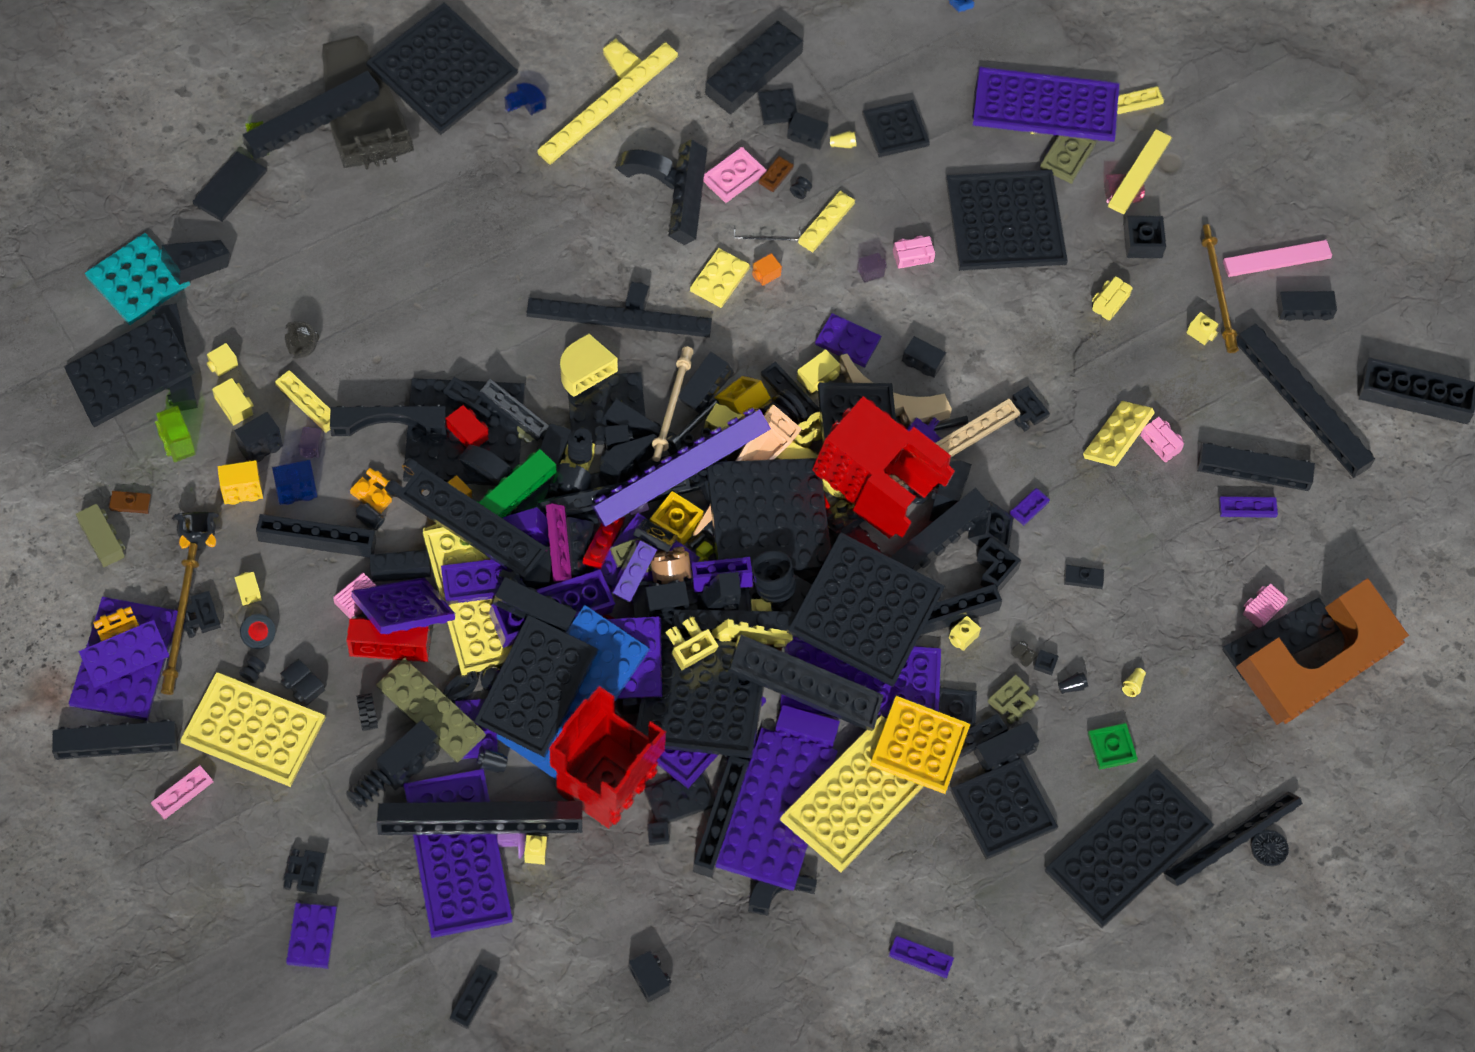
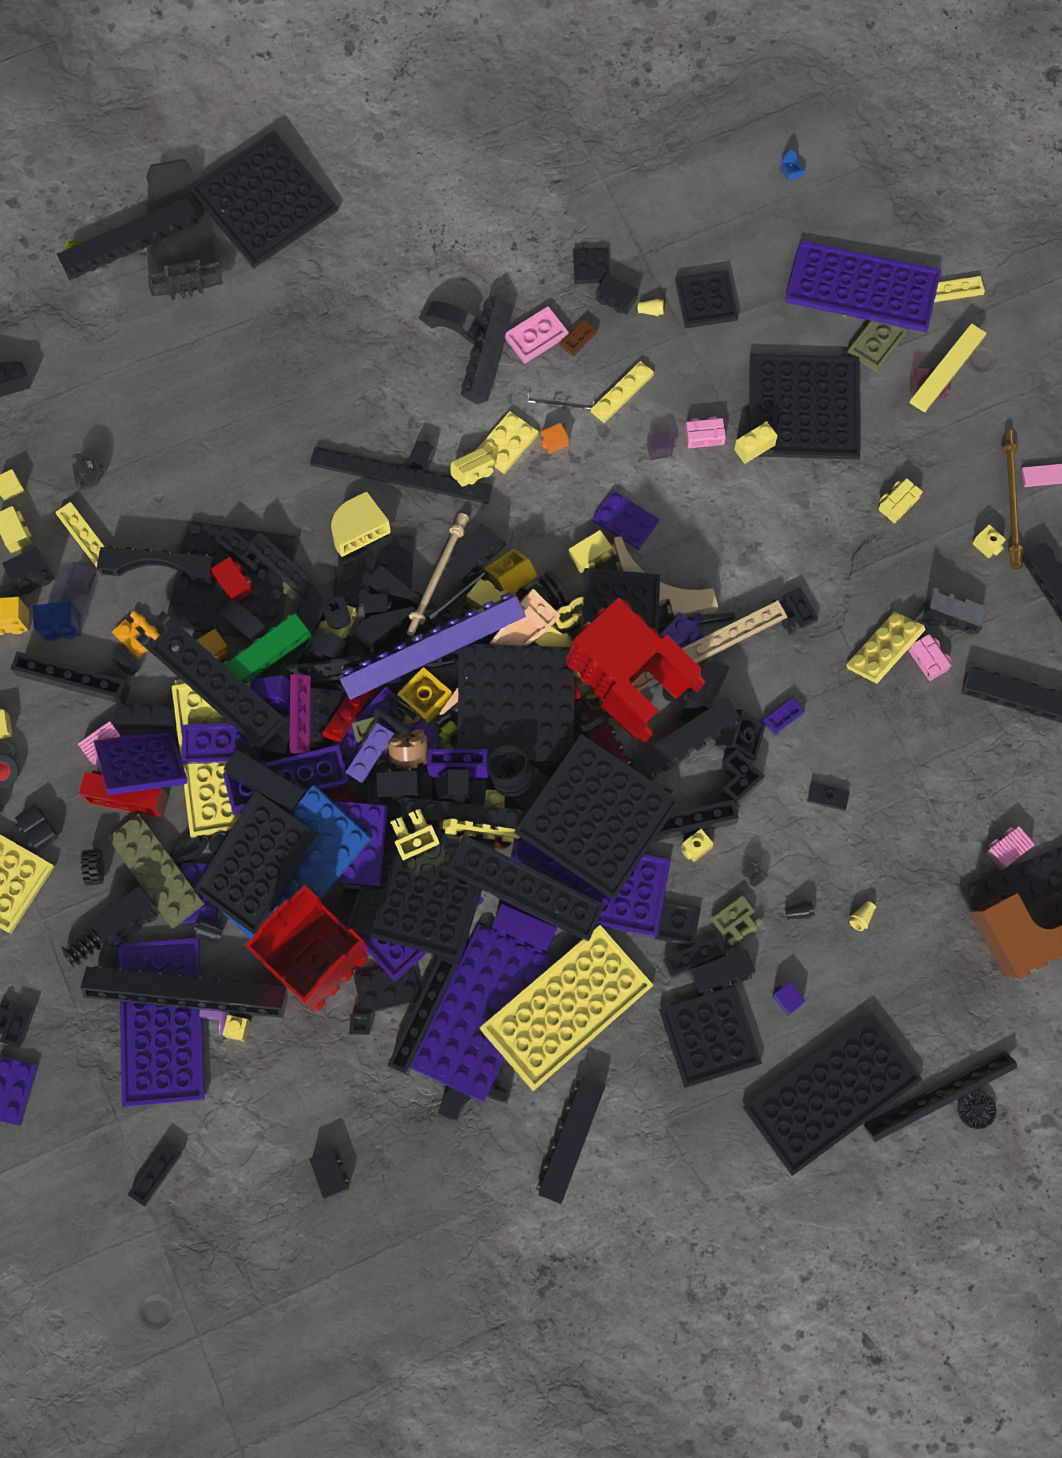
camera: 15 degrees right, 10 degrees up
(229, 186) = (42, 305): black tile -> none
(528, 96) = (341, 234): clear blue brick -> none
(607, 103) = (421, 249): light yellow plate -> none
(620, 58) = (447, 210): light yellow wing -> none
(690, 302) = (472, 467): none -> light yellow brick
(754, 67) = (572, 222): black brick -> none
(781, 380) = (554, 562): black plate -> none
(801, 187) = (601, 354): black wheel -> none
(884, 918) = (571, 1140): none -> black brick
(920, 744) = (633, 962): yellow plate -> none
(921, 957) = (603, 1185): dark purple plate -> none
(924, 357) = (698, 546): black brick -> none
(965, 255) = (755, 442): none -> light yellow brick
(1046, 662) = (775, 885): black plate -> none
(1074, 764) = (788, 998): none -> dark purple brick
(1112, 746) = (830, 982): green plate -> none
(1145, 237) = (943, 438): black brick -> none
(1178, 396) = (953, 613): none -> black wedge
(1248, 507) = (1008, 738): dark purple plate -> none

